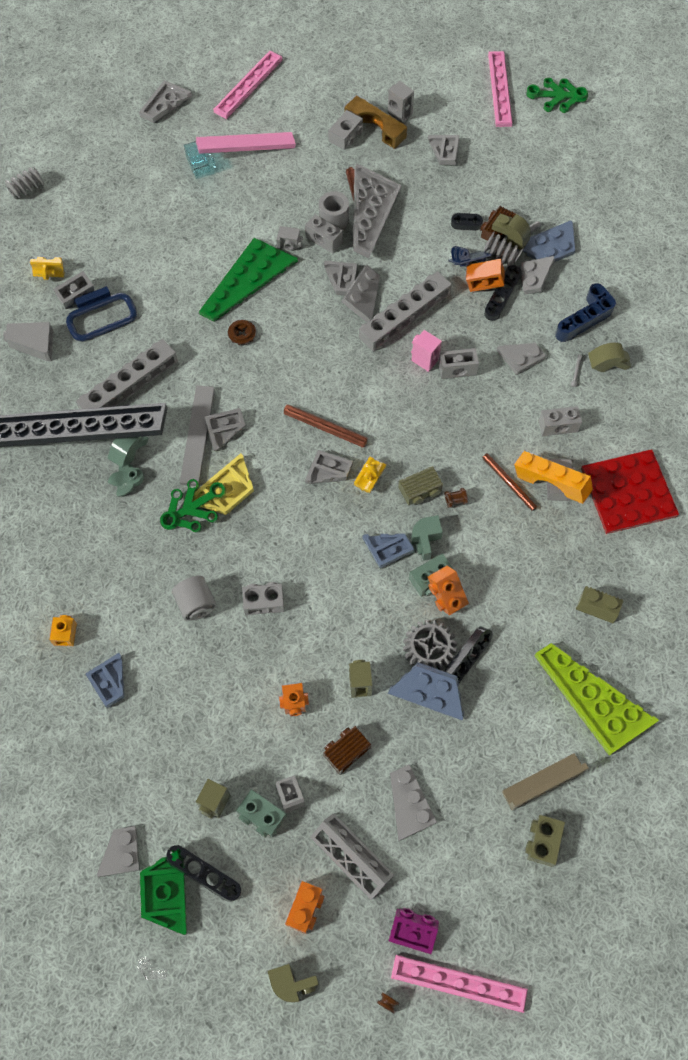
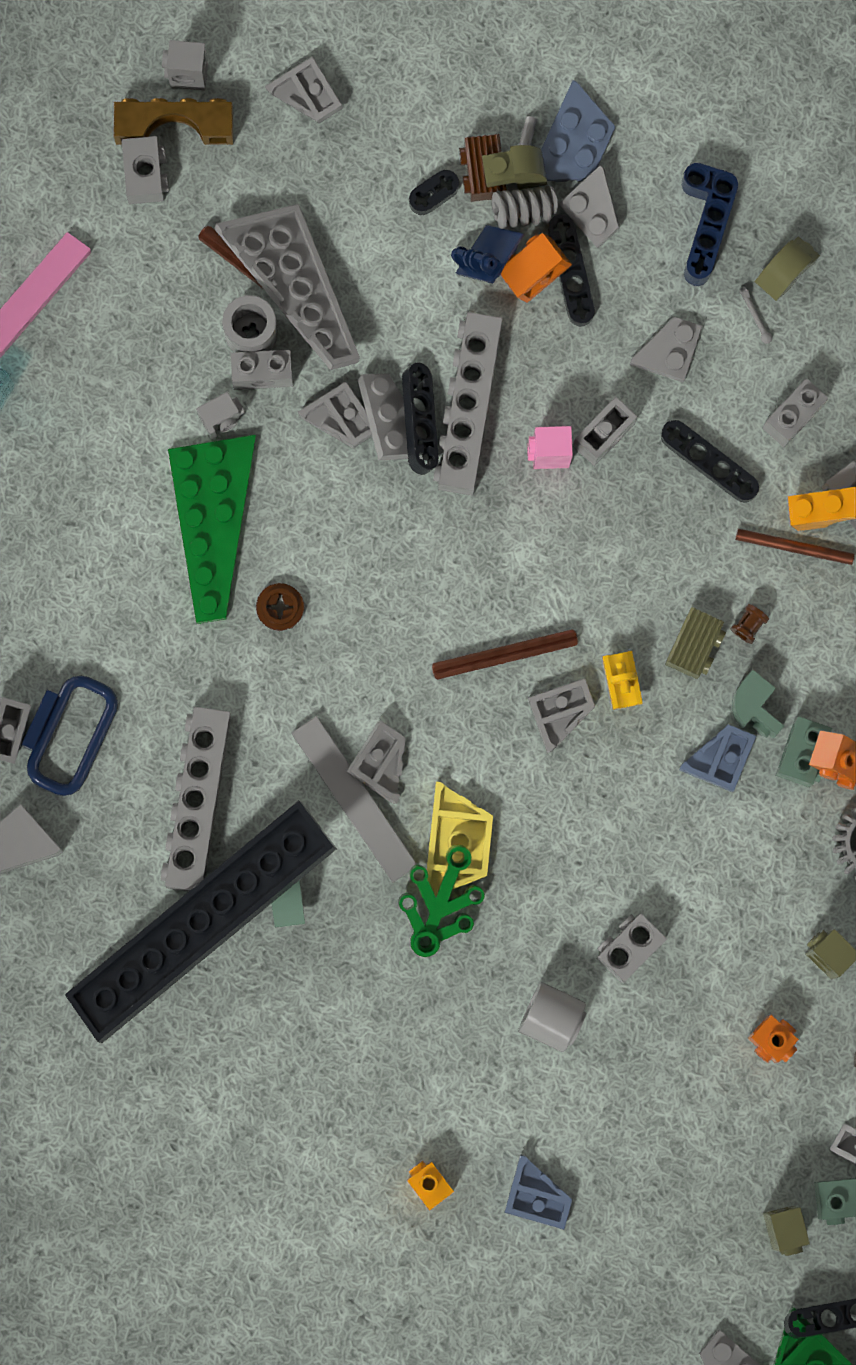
camera: 45 degrees left, 15 degrees up
(126, 479) = (317, 937): sand green plate -> none
(376, 299) = (415, 418): none -> black beam
(499, 415) = (706, 465): none -> black beam

